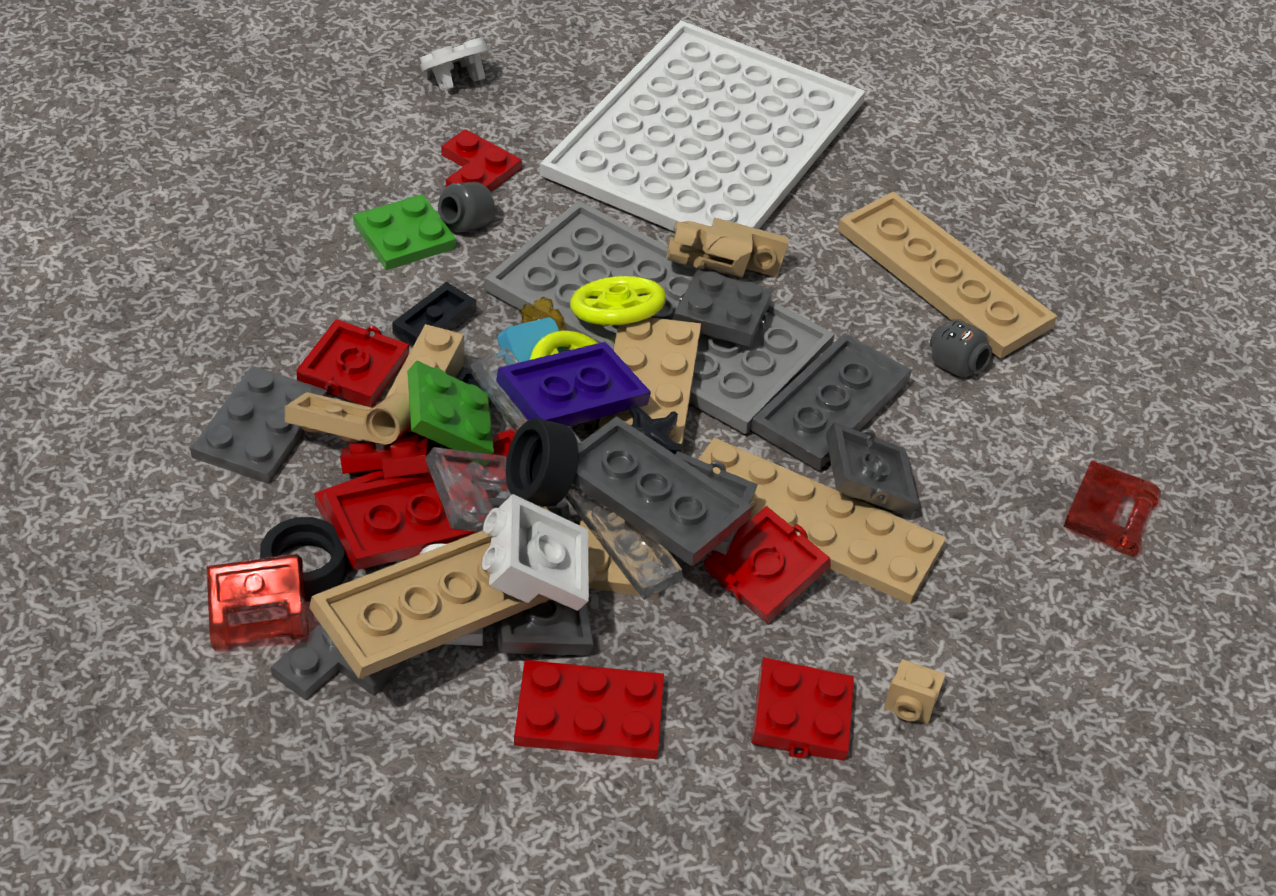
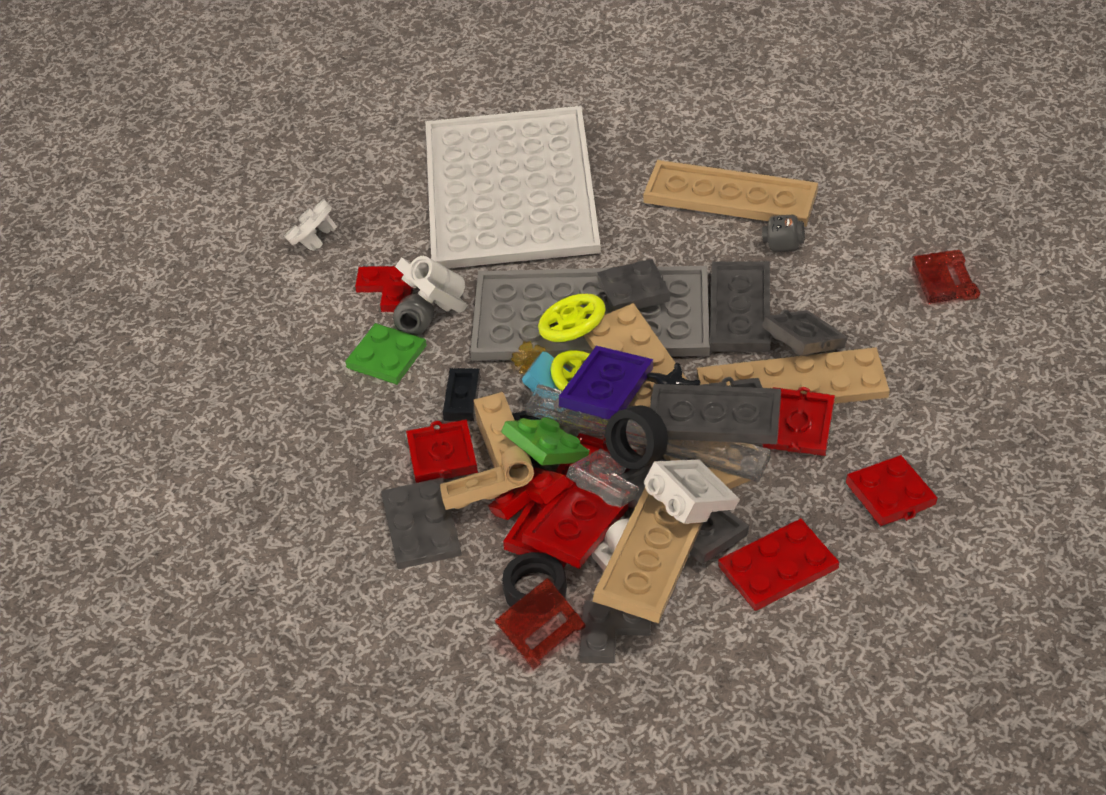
camera: 25 degrees left, 0 degrees up
(513, 185) = (434, 282): none -> white plate
(727, 247) = (599, 249): tan plate -> none
(914, 692) = (939, 443): tan bracket -> none

